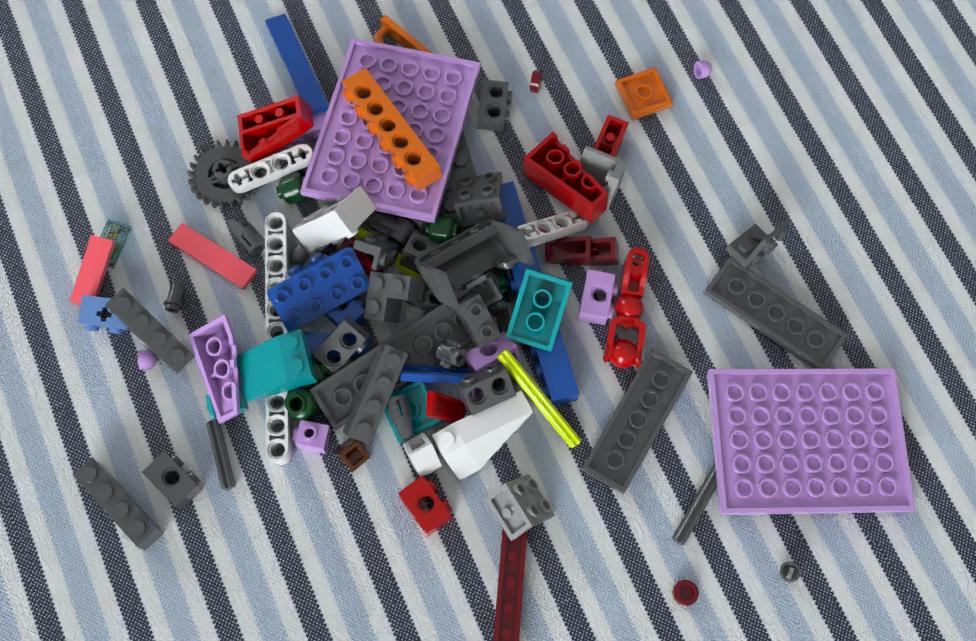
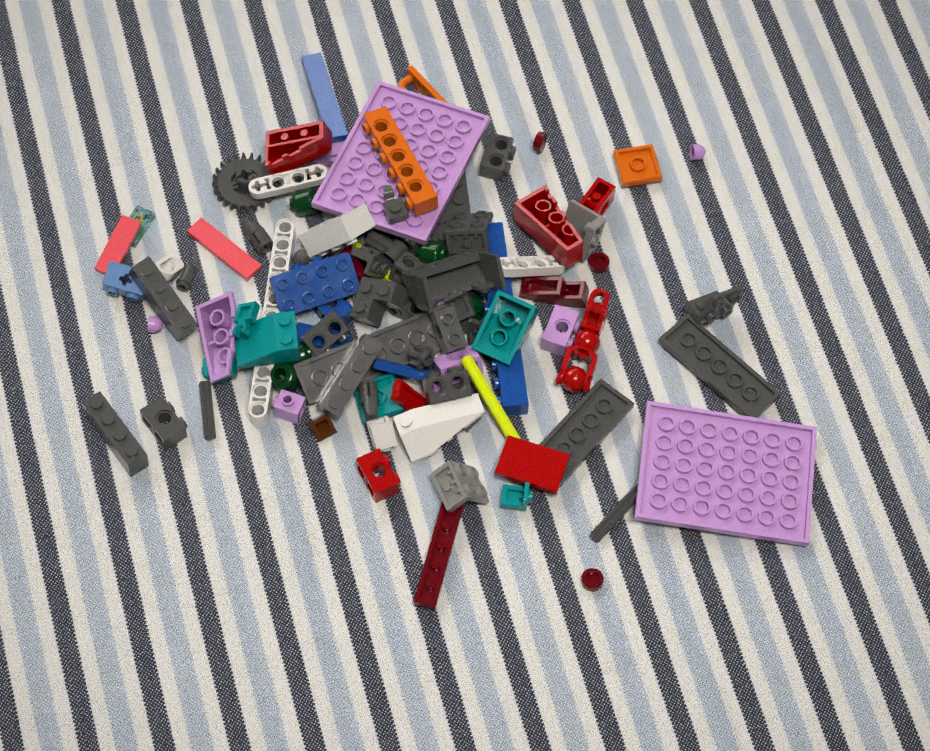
camera: 10 degrees right, 10 degrees down
(152, 290) = (170, 266): none -> white plate
(245, 342) = (245, 315): none -> teal plate
(393, 186) = (393, 208): none -> dark grey plate
(584, 506) = (516, 497): none -> teal bracket
(596, 466) = (532, 463): none -> red tile
(622, 210) = (599, 263): none -> dark red tile
(785, 569) = (683, 574): dark grey hinge -> none

